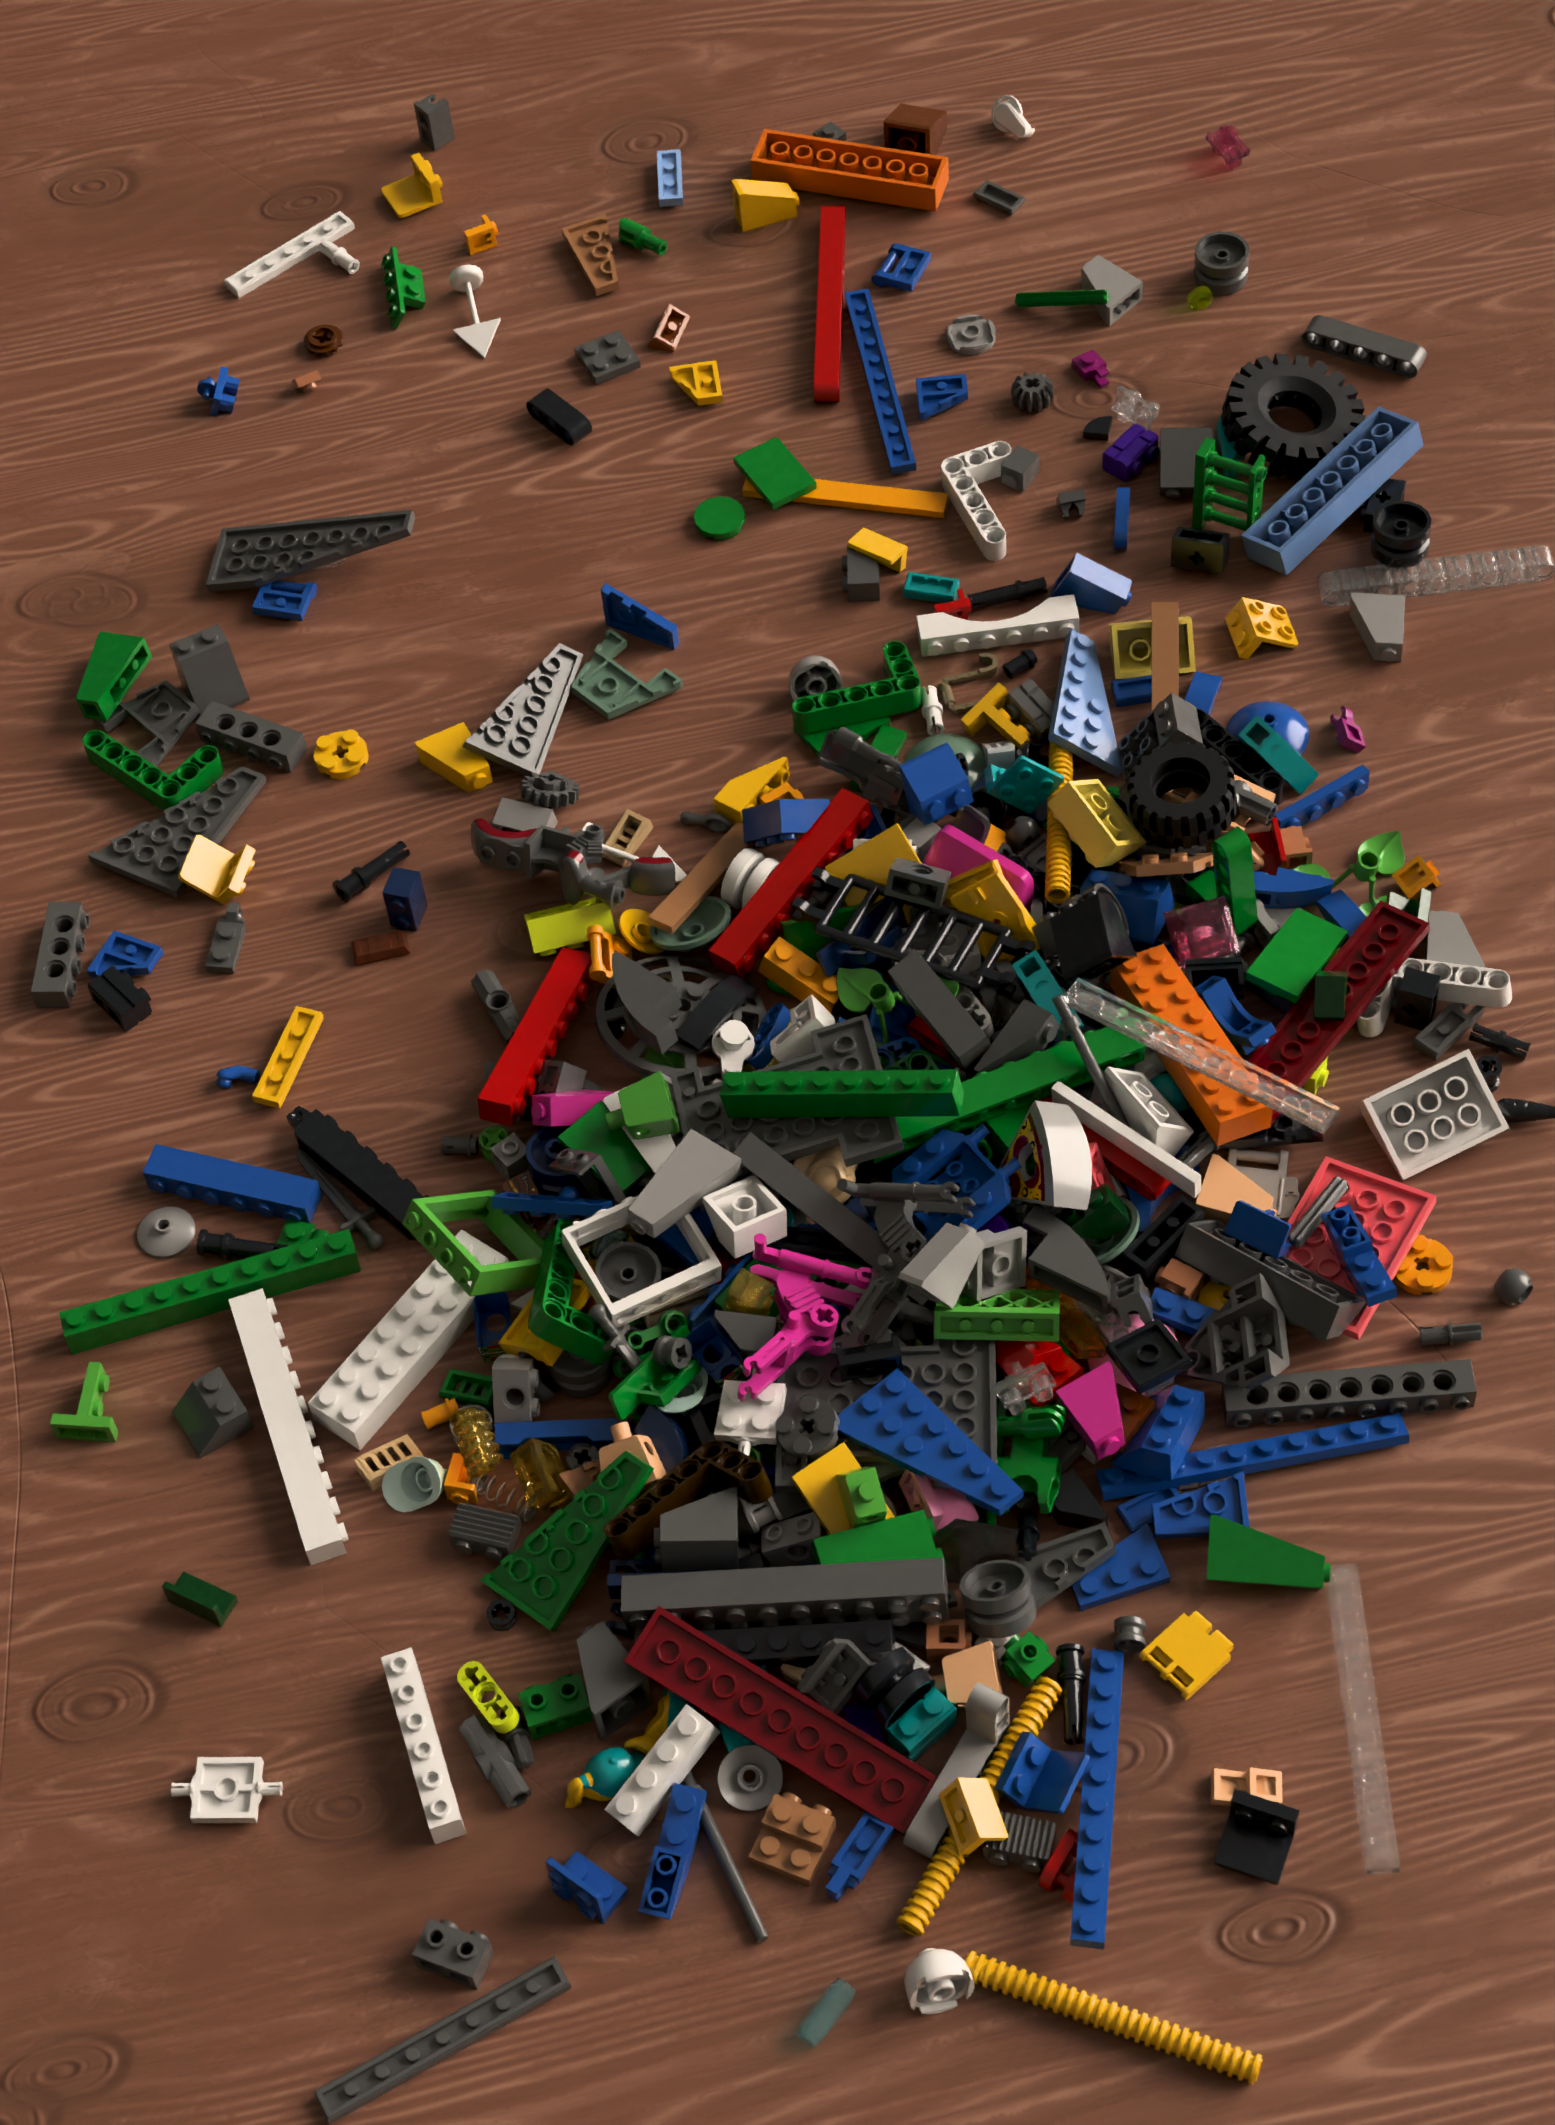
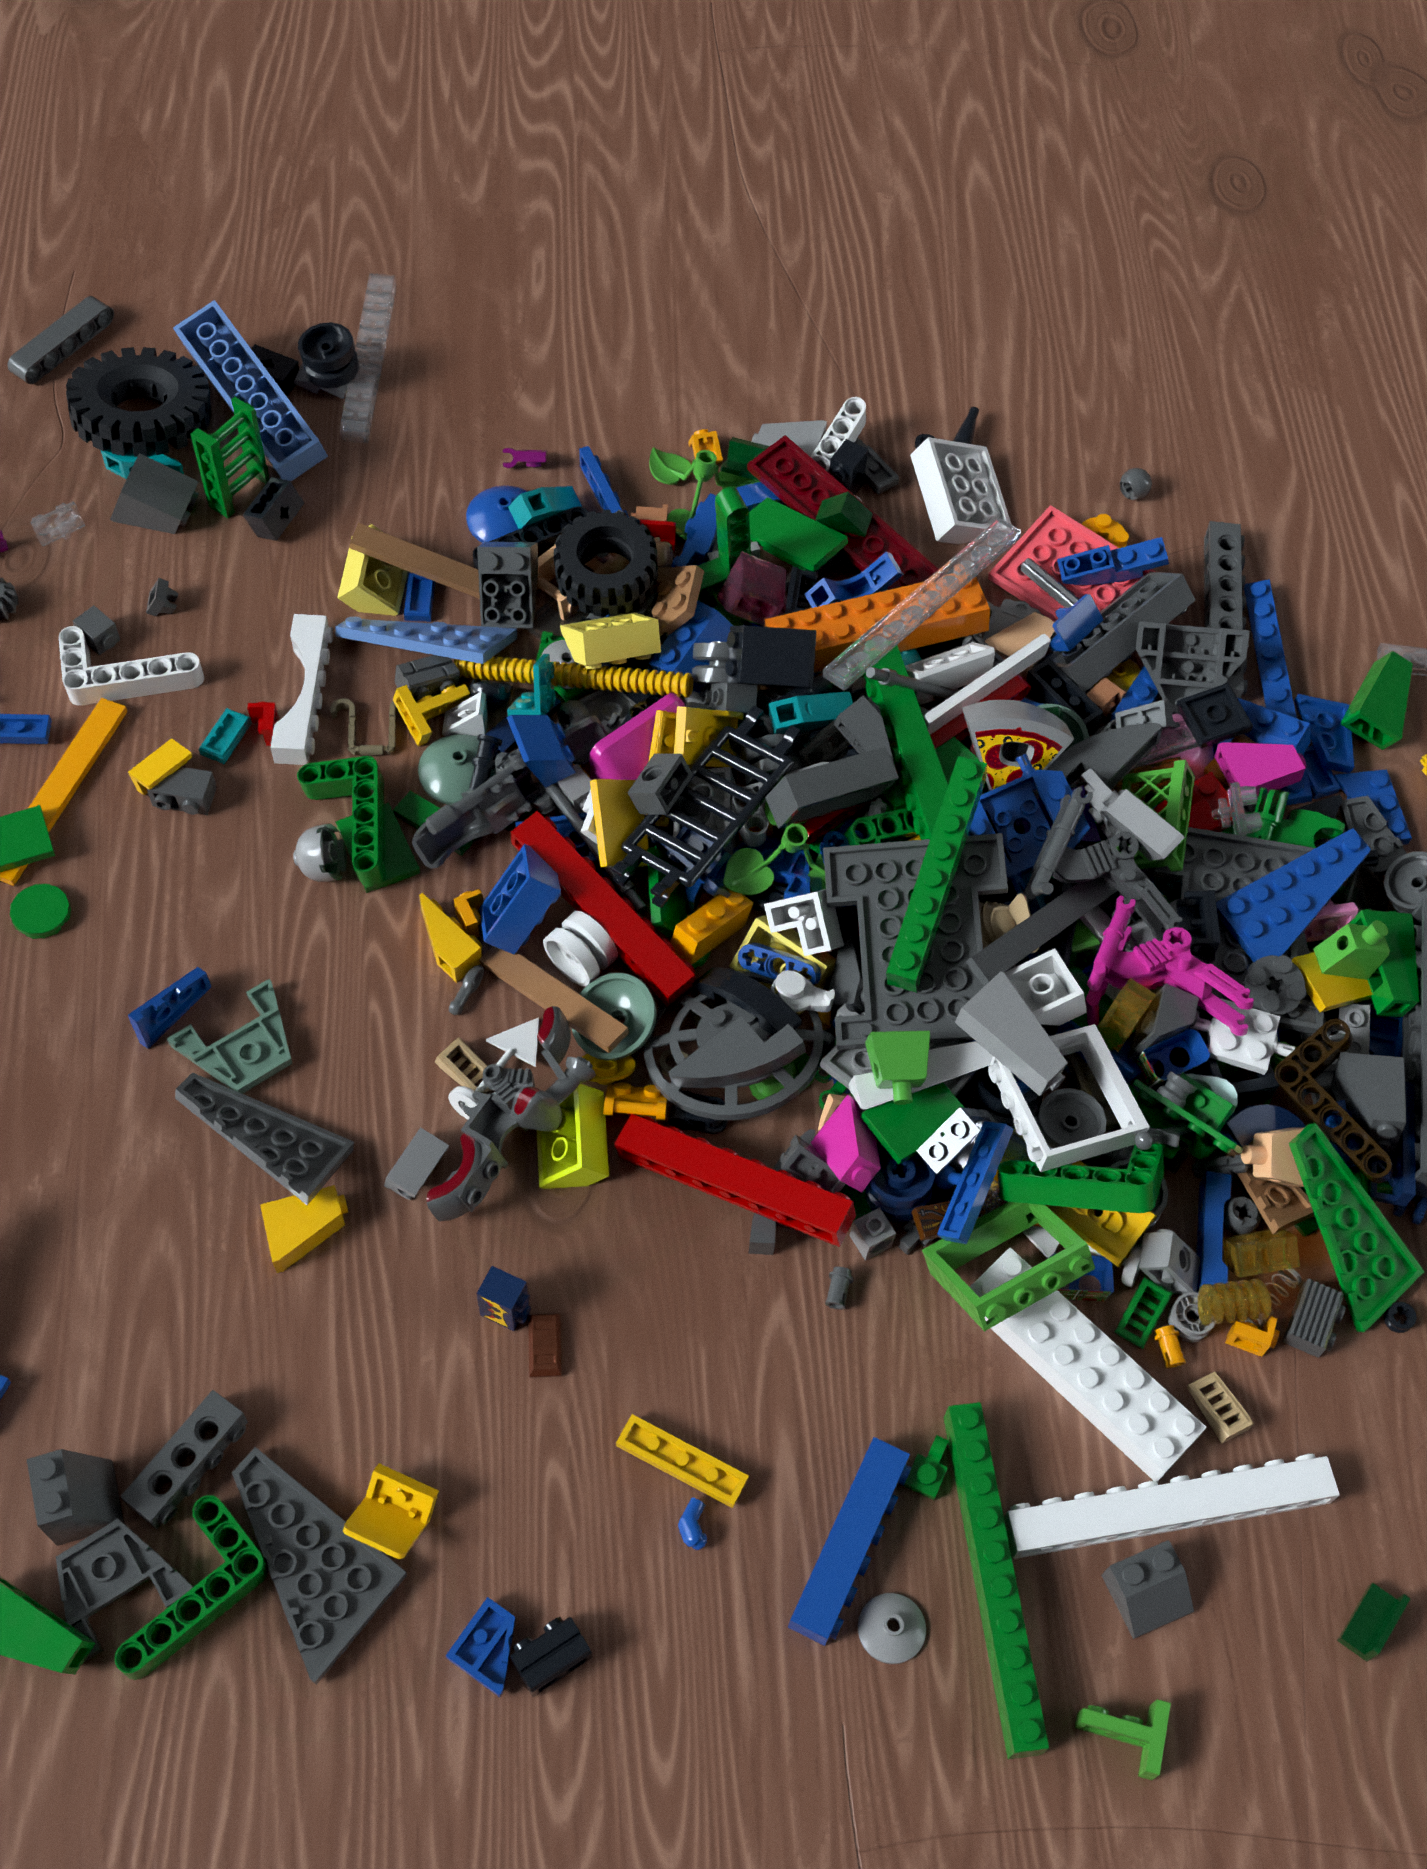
camera: 90 degrees left, 5 degrees up
(60, 955) = (512, 1753): dark grey brick -> none
(227, 941) = (491, 1519): dark grey hinge -> none
(229, 1246) = (931, 1551): black pin -> none
(343, 741) = (233, 1343): yellow plate -> none
(351, 1213) = (901, 1415): dark grey sword -> none
(354, 1166) = (860, 1392): black hinge -> none
(361, 877) = (443, 1350): black pin -> none
(413, 1483) = (1259, 1374): light aqua piece -> none
(489, 1138) = (850, 1245): bright green wheel -> none
(497, 1003) = (689, 1217): dark grey piece -> none
(549, 790) = (386, 1128): dark grey gear -> none
(932, 710) = (397, 764): white pin -> none
(1016, 591) = (259, 665): black pin -> none
(1025, 660) = (353, 676): black pin -> none
(1093, 585) = (279, 602): blue slope -> none
(1098, 428) = (67, 559): black tile -> none
(1122, 518) = (200, 563): blue beam -> none
(1130, 452) = (116, 538): dark purple brick -> none
(1203, 691) = (448, 547): blue slope -> none
(1259, 622) = (381, 492): yellow bracket -> none
(1379, 623) = (413, 405): light grey slope -> none
(1450, 1333) = (1172, 534): dark grey axle -> none
(1499, 1041) = (891, 436): black pin -> none

